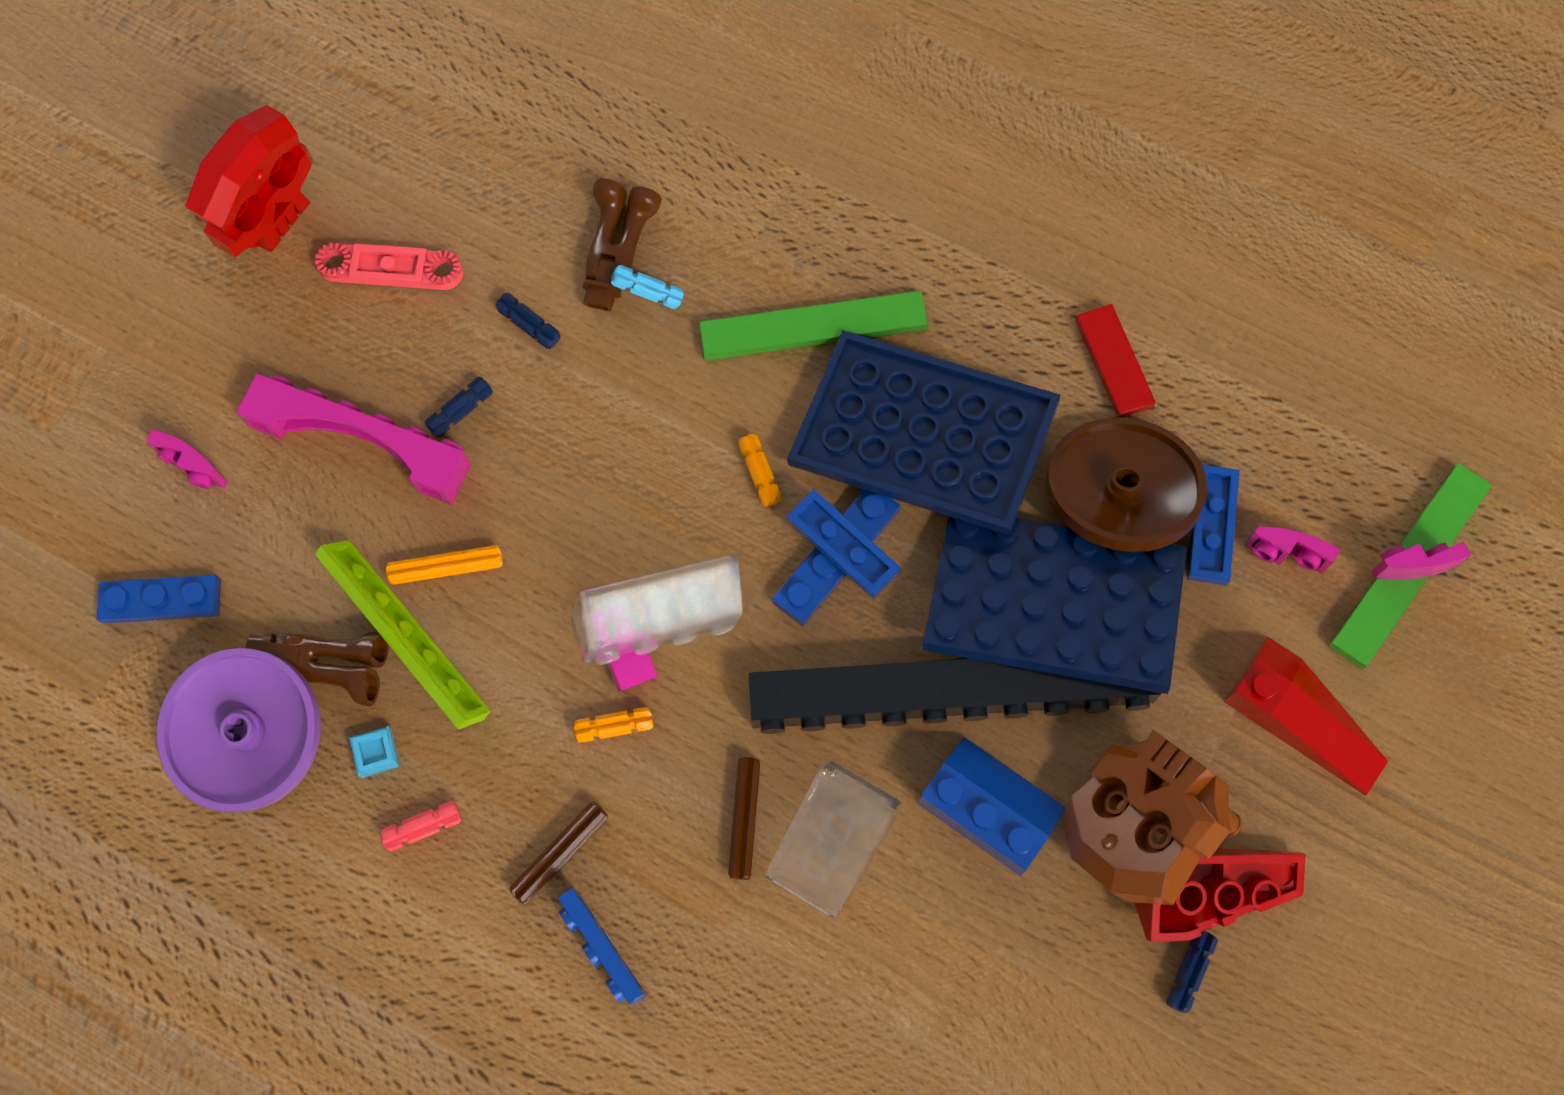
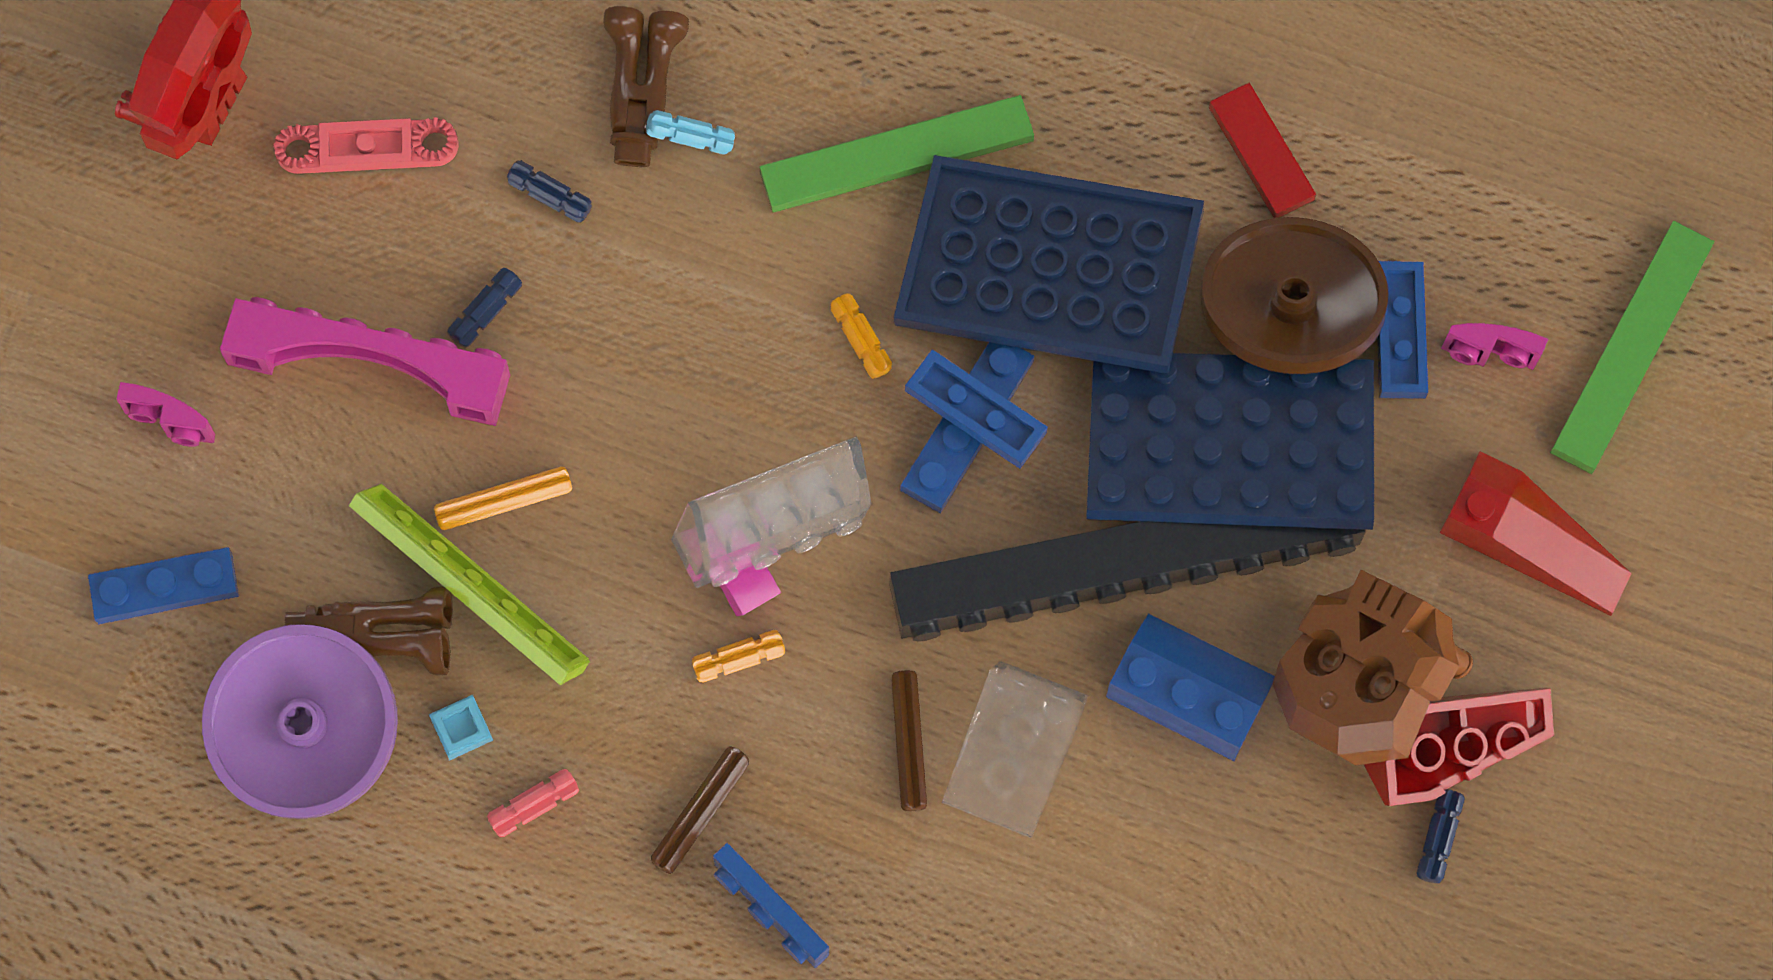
camera: 15 degrees left, 0 degrees up
(1415, 563) = (1632, 344): dark pink slope -> none

